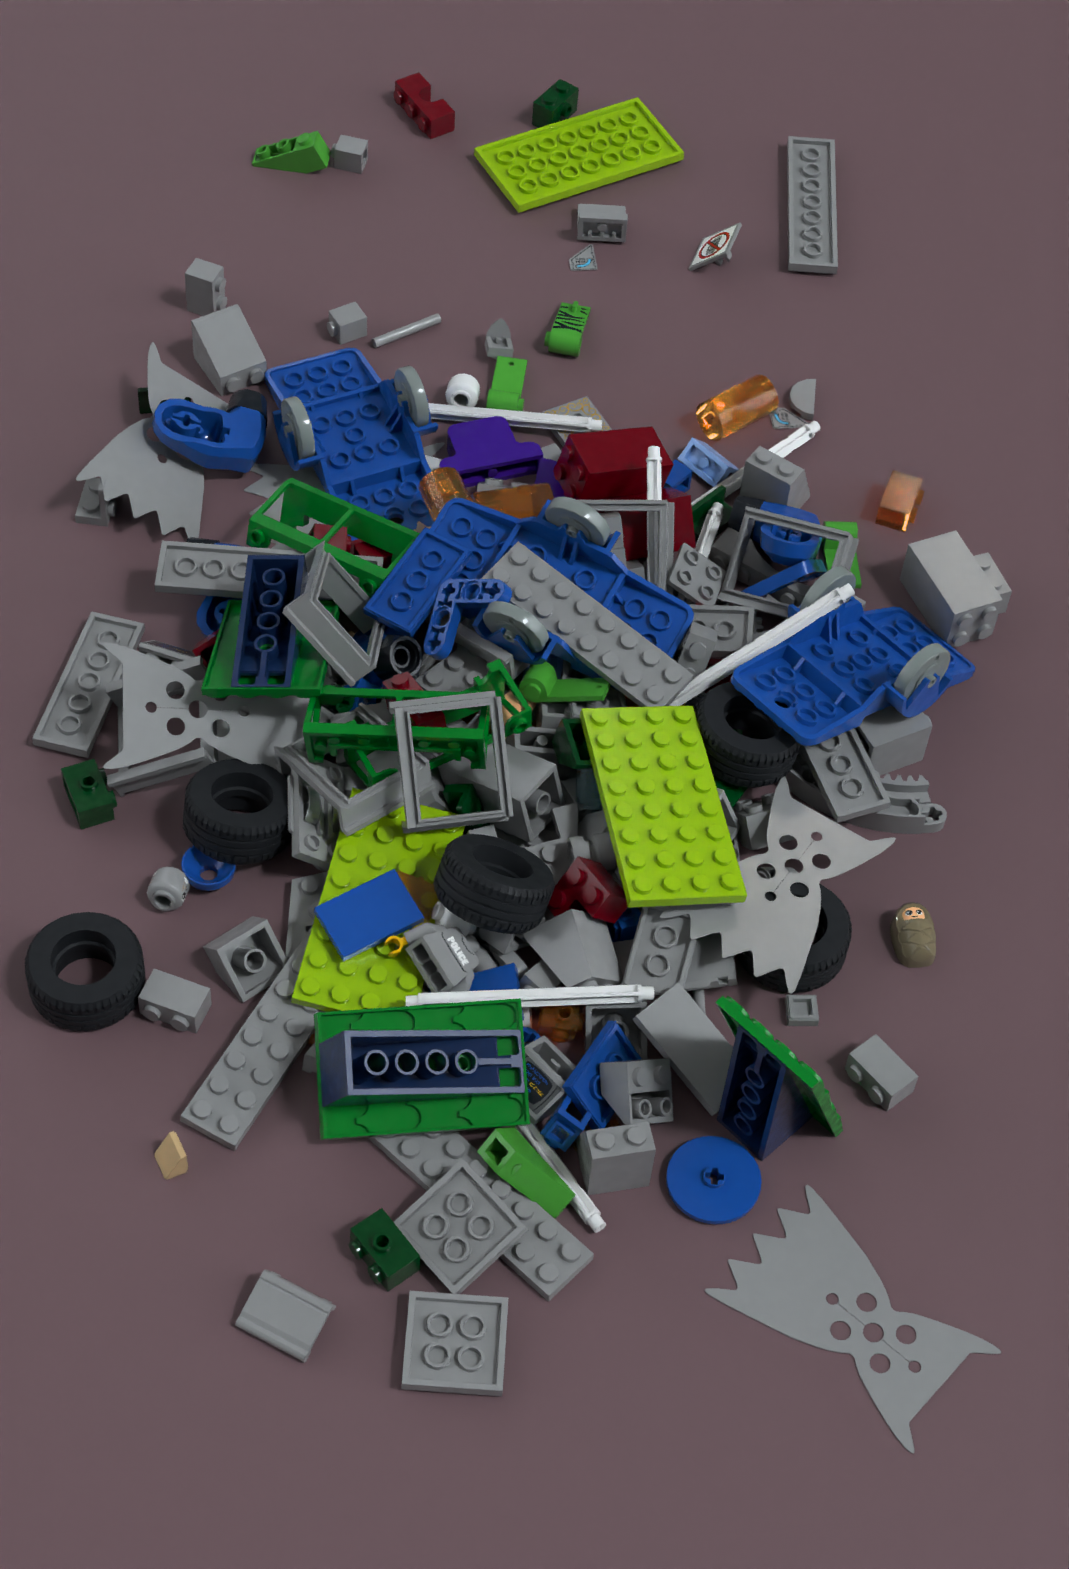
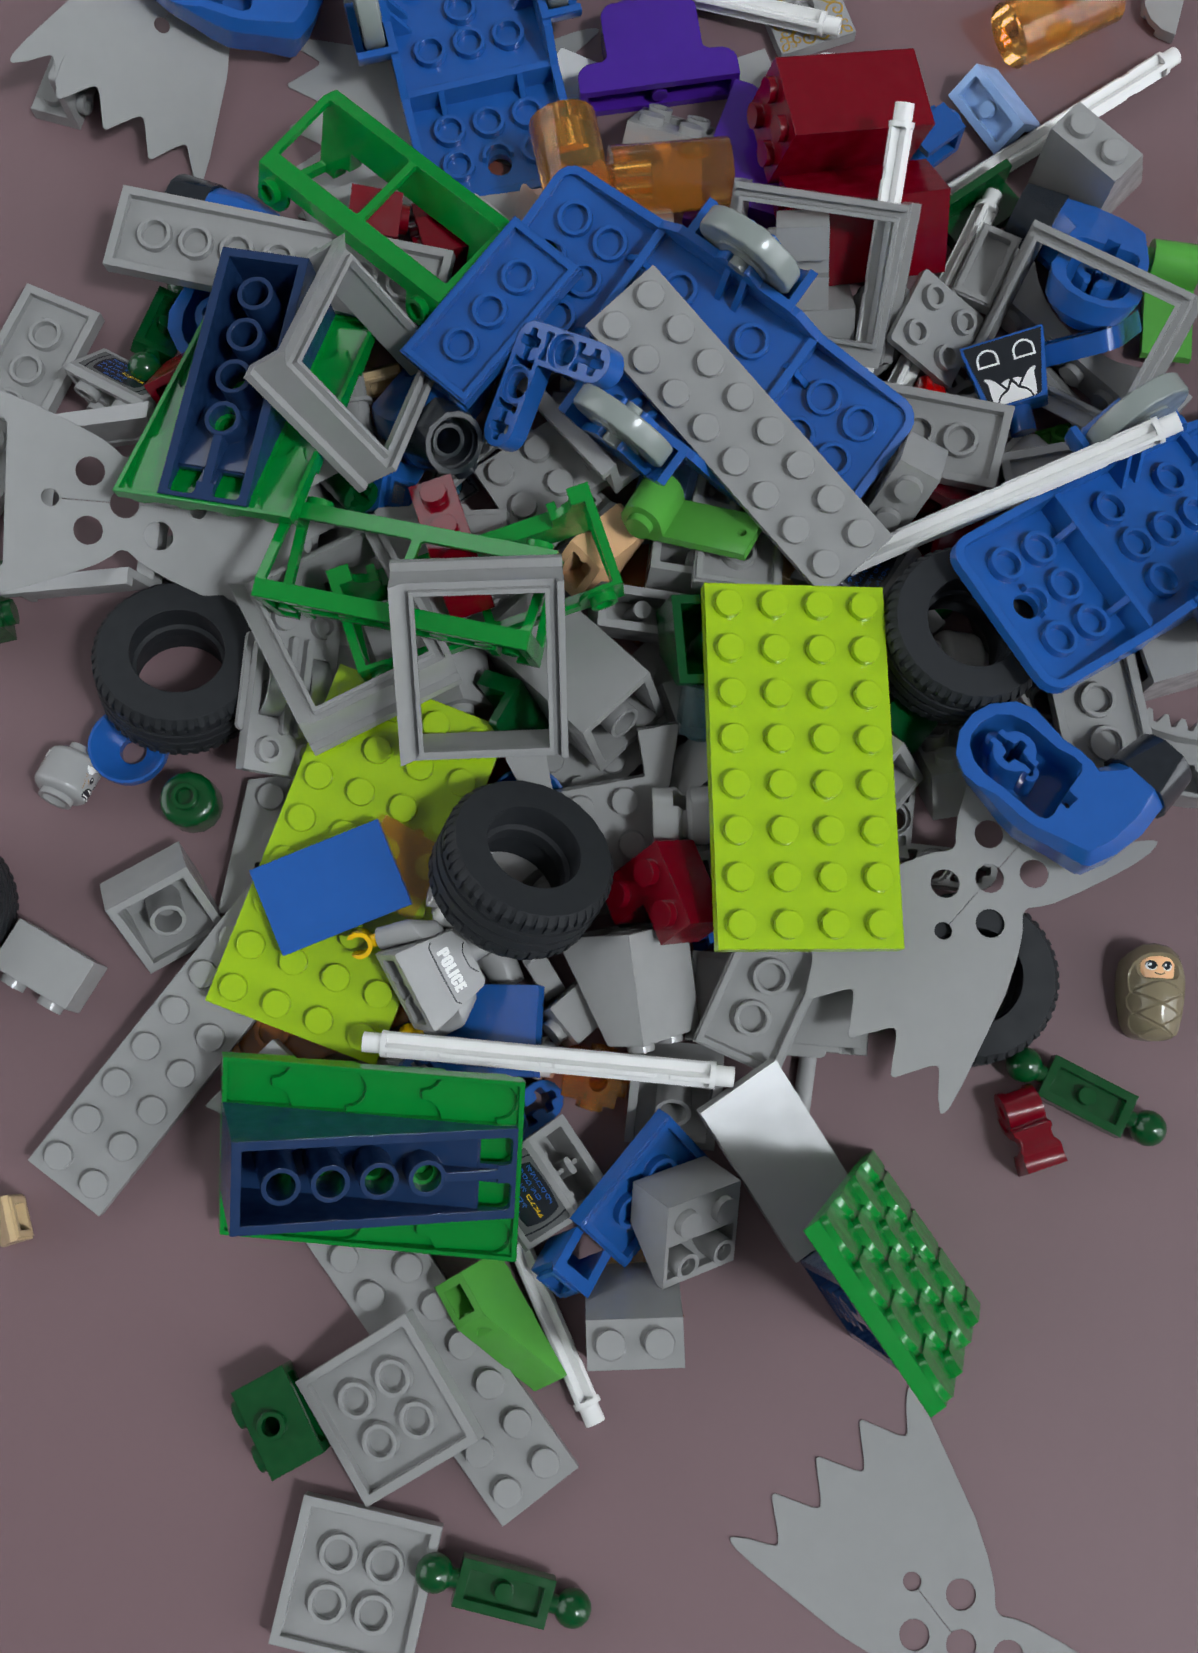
camera: 15 degrees right, 25 degrees up
(186, 630) = (153, 341): none -> dark green plate
(257, 893) = (191, 802): none -> dark green head
(284, 1315) = (128, 1499): light grey piece -> none
(557, 1332) = (503, 1590): none -> dark green plate
(691, 1185) = (794, 1398): blue piece -> none
(721, 542) = (986, 267): none -> light grey tile
(749, 588) = (1011, 373): none -> torso
(784, 418) = (1131, 37): light grey sticker -> none
(801, 1010) = (966, 1103): light grey tile -> none
(824, 806) = (1055, 795): none -> blue piece
(847, 1012) = (1025, 1122): none -> dark red leg
(881, 1072) = (1055, 1228): light grey brick -> none
(884, 997) = (1087, 1097): none -> dark green plate

